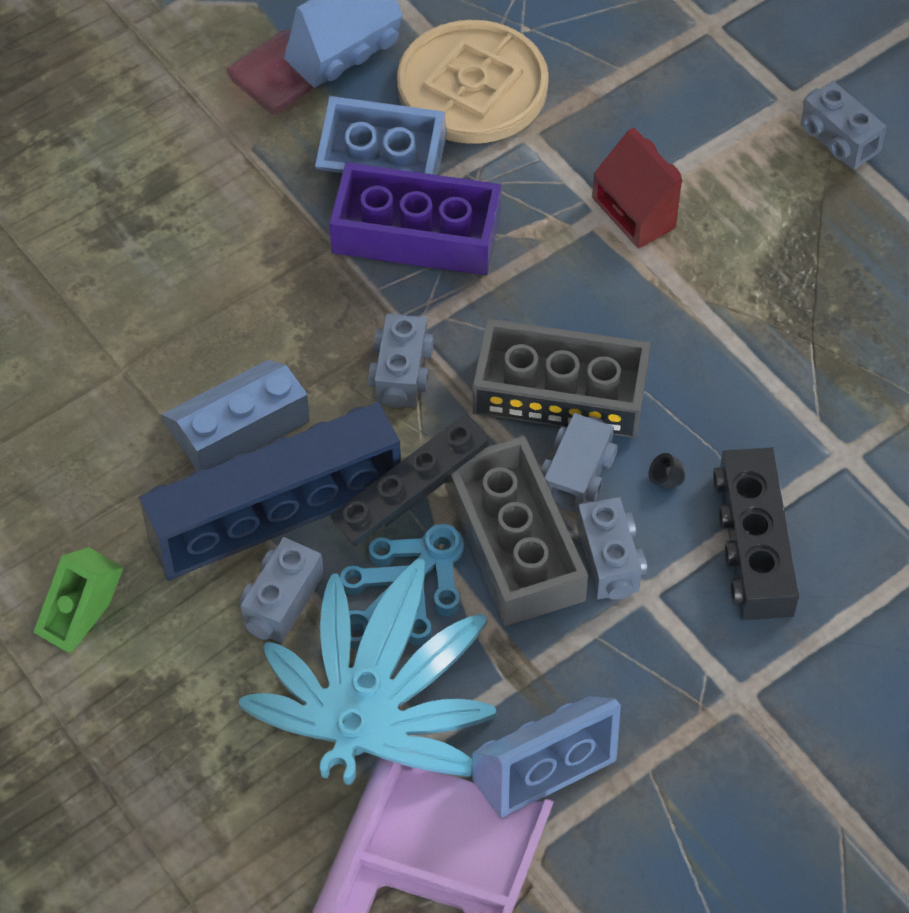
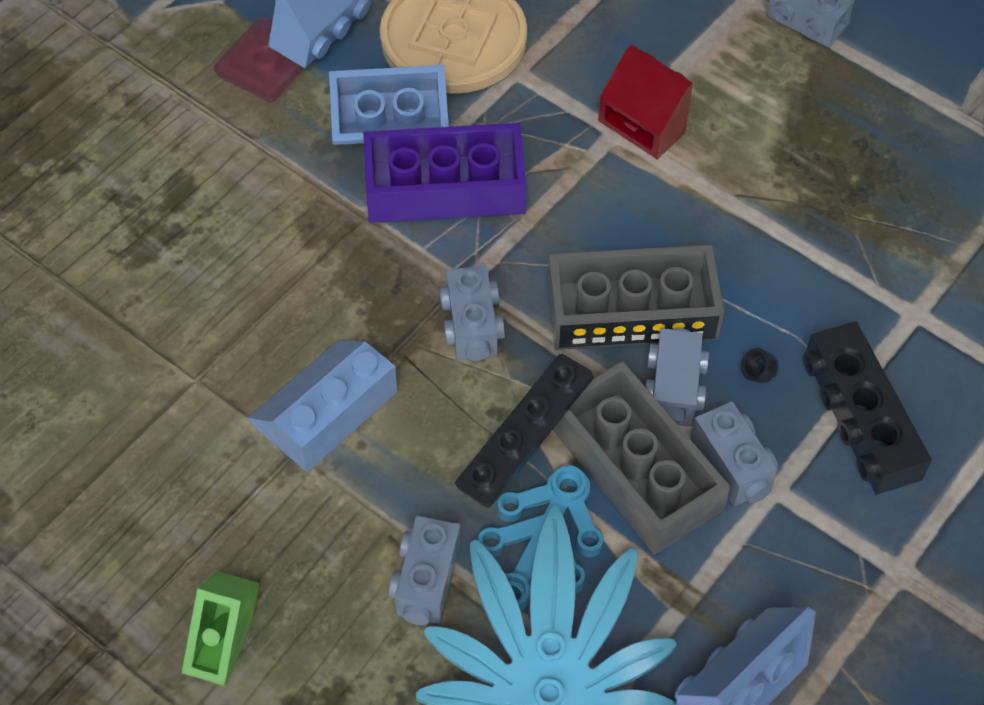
camera: 15 degrees left, 0 degrees up
(268, 490) = (385, 471): dark blue brick -> none

